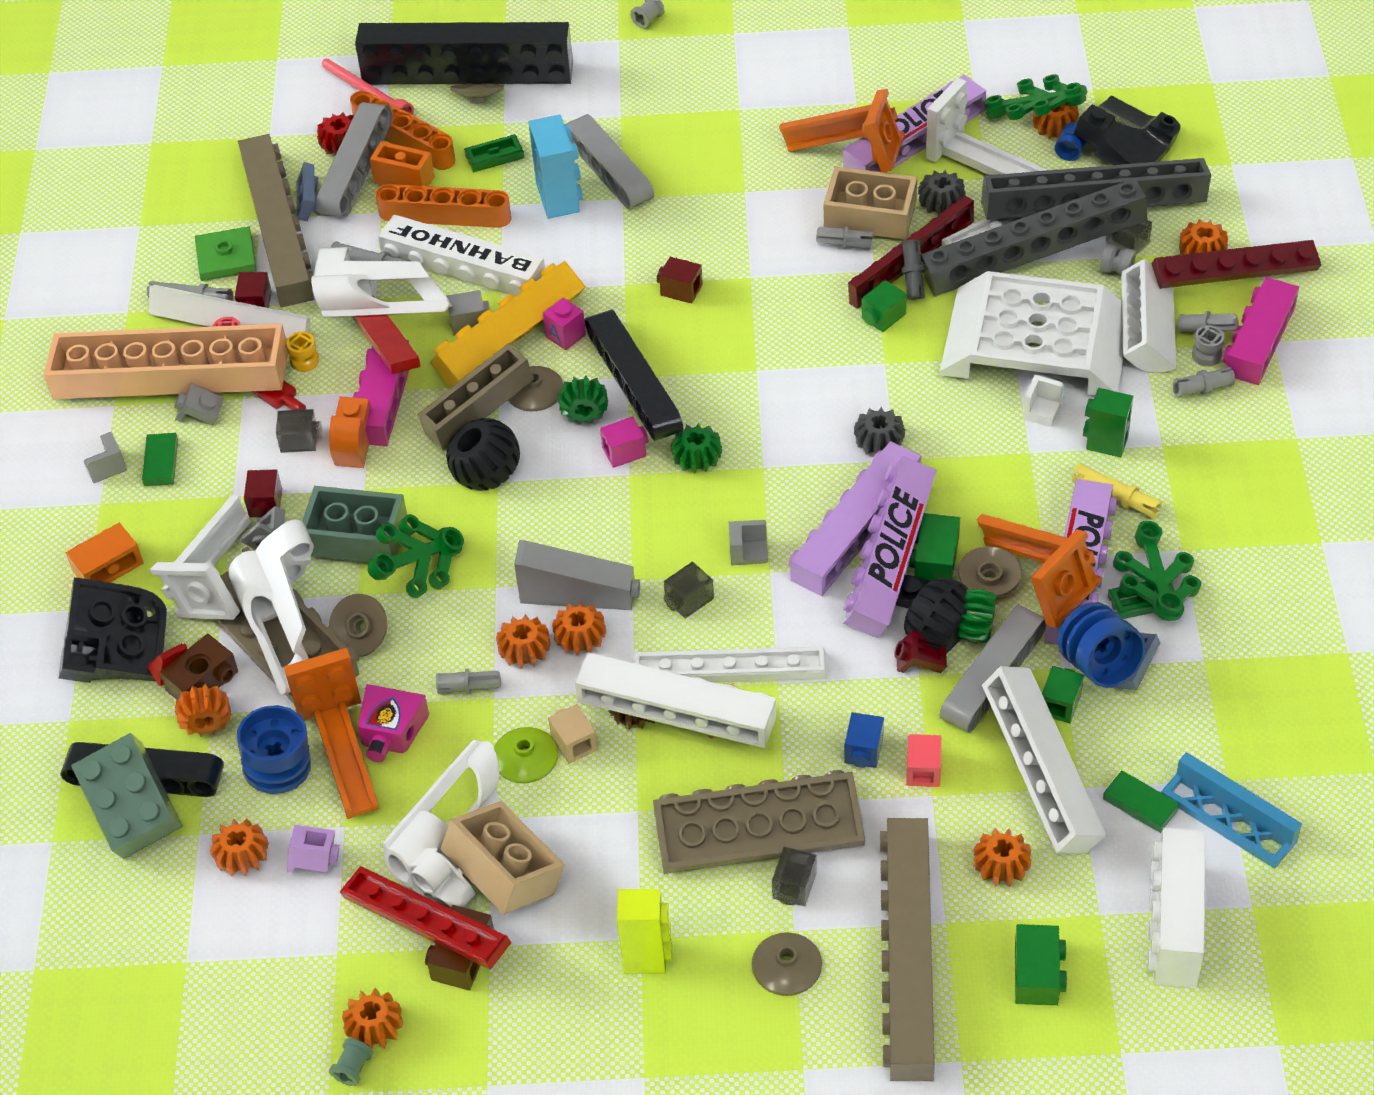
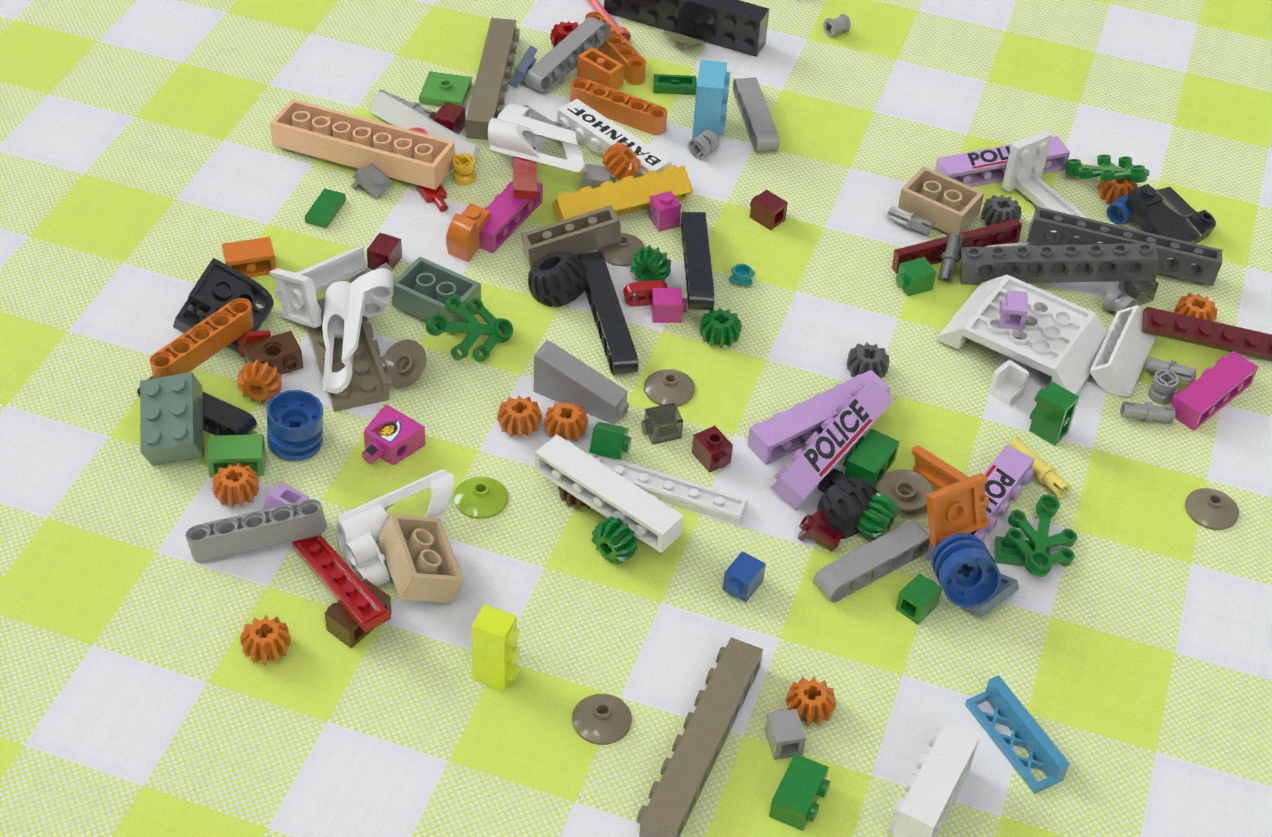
camera: 15 degrees right, 5 degrees down
(106, 463) = (286, 197): light grey panel -> none
(113, 686) = (203, 339): none -> orange beam
(220, 806) = (235, 449): none -> bright green brick
(295, 894) = (256, 530): none -> light grey beam
(297, 430) = (431, 220): clear smoke brick -> none
(323, 691) = (351, 397): orange bracket -> none
(351, 1062) = (233, 664): sand green bush -> none
(467, 681) = (464, 430): light grey axle -> none
(489, 280) = (621, 161): none -> orange gear
(563, 478) = (608, 315): none -> black beam
(567, 220) = (703, 144): none -> light grey wheel
(572, 733) = (522, 493): tan brick -> none
(587, 436) = (643, 292): none -> red beam
(641, 633) = (610, 440): none -> green brick
(671, 542) = (669, 387): none -> dark tan dish
(688, 373) = (741, 275): none -> teal plate
(705, 751) = (615, 540): none -> green gear
(748, 542) = (726, 405): light grey panel -> none
(758, 600) = (712, 448): none -> dark red brick
(758, 821) = (631, 606): dark tan bracket -> none
(794, 877) = (638, 656): clear smoke brick -> none
(870, 121) = (965, 143): orange bracket -> none
(923, 760) = (783, 608): coral panel -> none
(992, 904) = (785, 733): none -> light grey brick
(1018, 314) = (1013, 310): none -> lavender brick
(1043, 760) = (878, 641): white brick -> none
(1141, 801) = (946, 700): green tile -> none
(1316, 471) = (1212, 509): none -> dark tan dish

